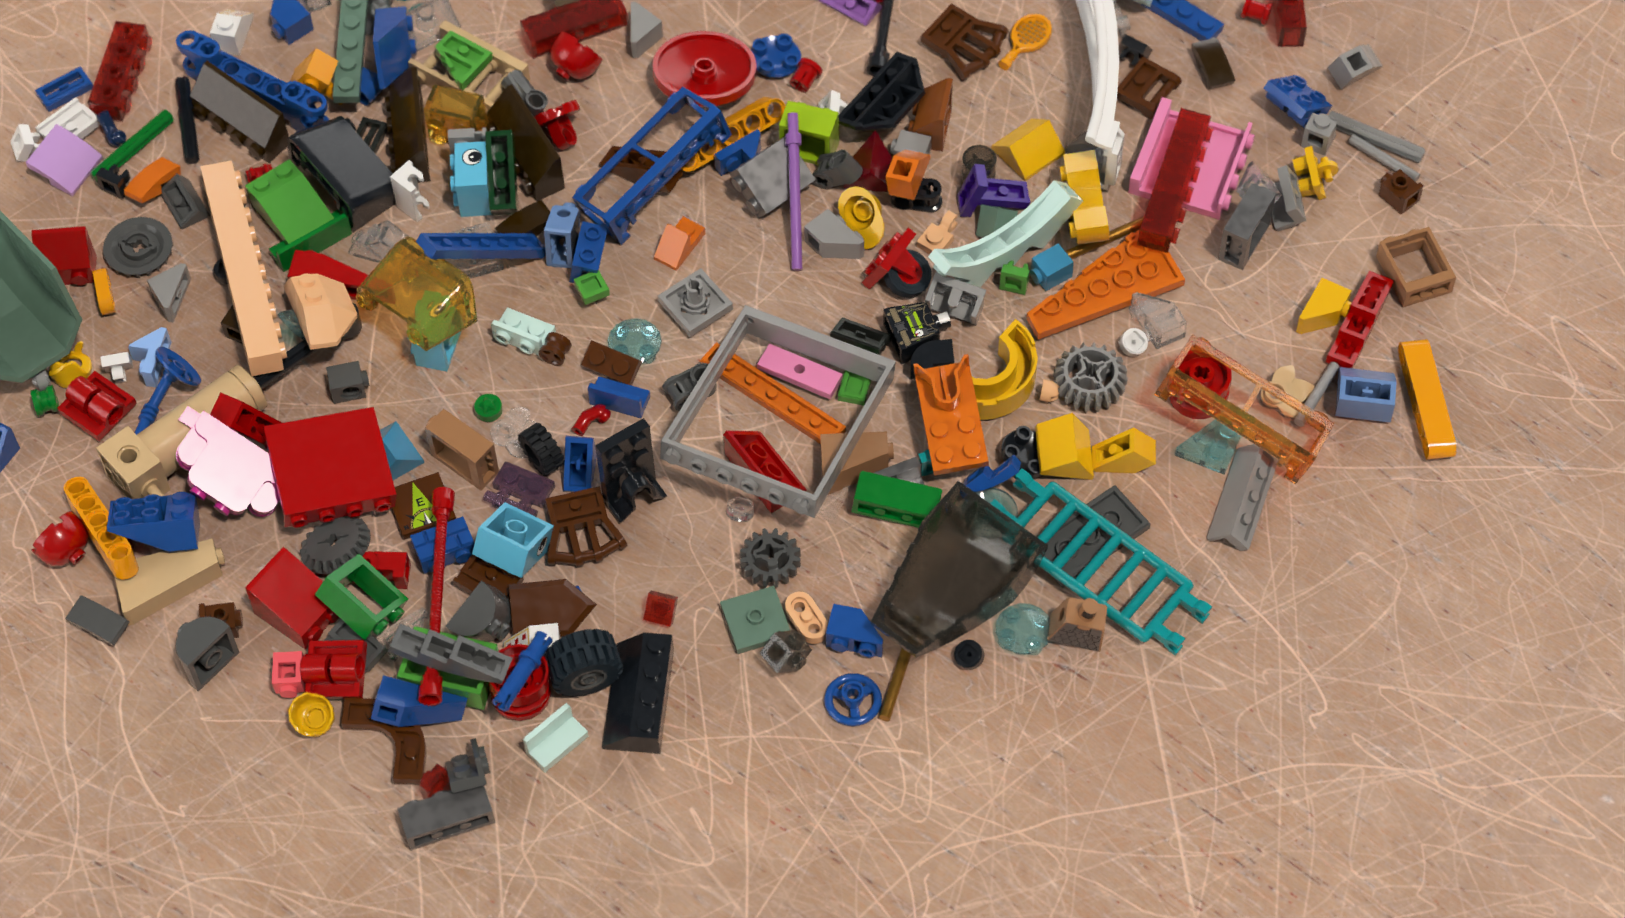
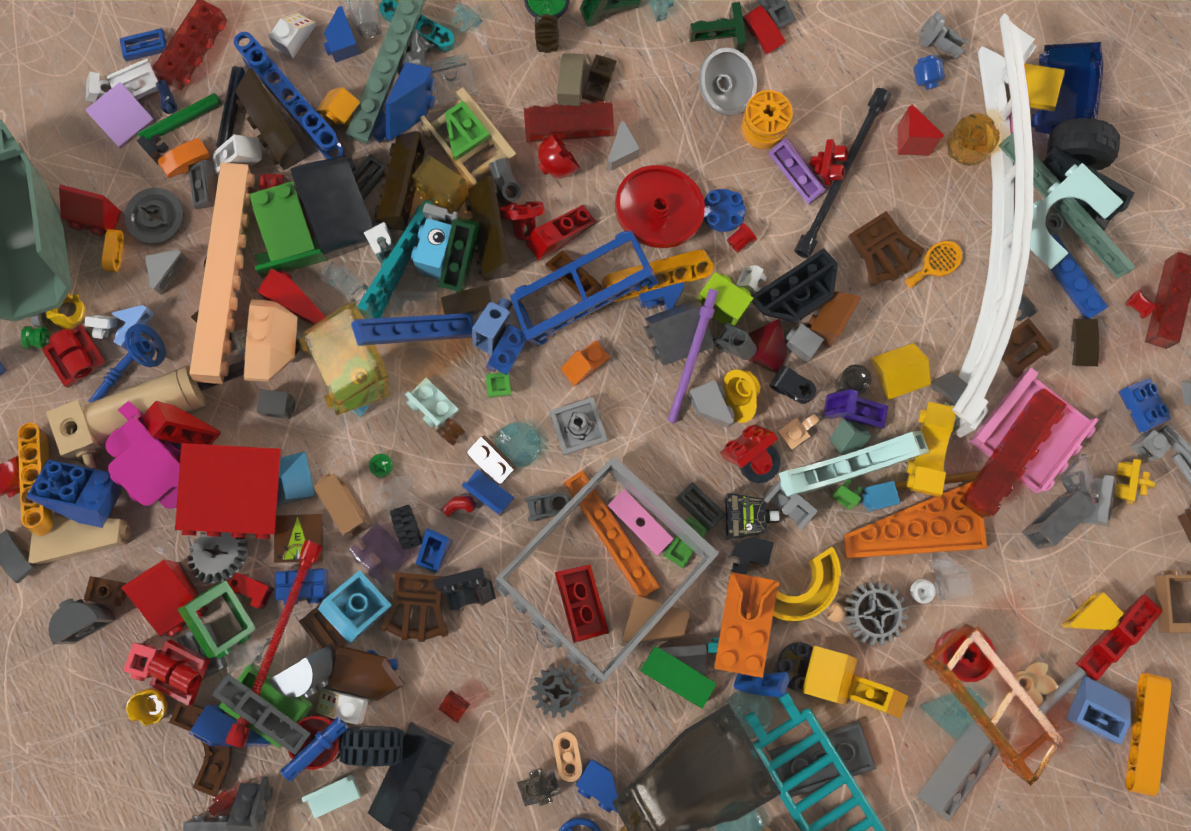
camera: 15 degrees right, 20 degrees up
(211, 150) = (238, 151): none -> white slope
(435, 198) = (392, 268): none -> teal wing
(601, 128) = (558, 232): none -> red slope
(754, 618) = (527, 741): sand green plate -> none
(906, 173) = (792, 372): orange slope -> none

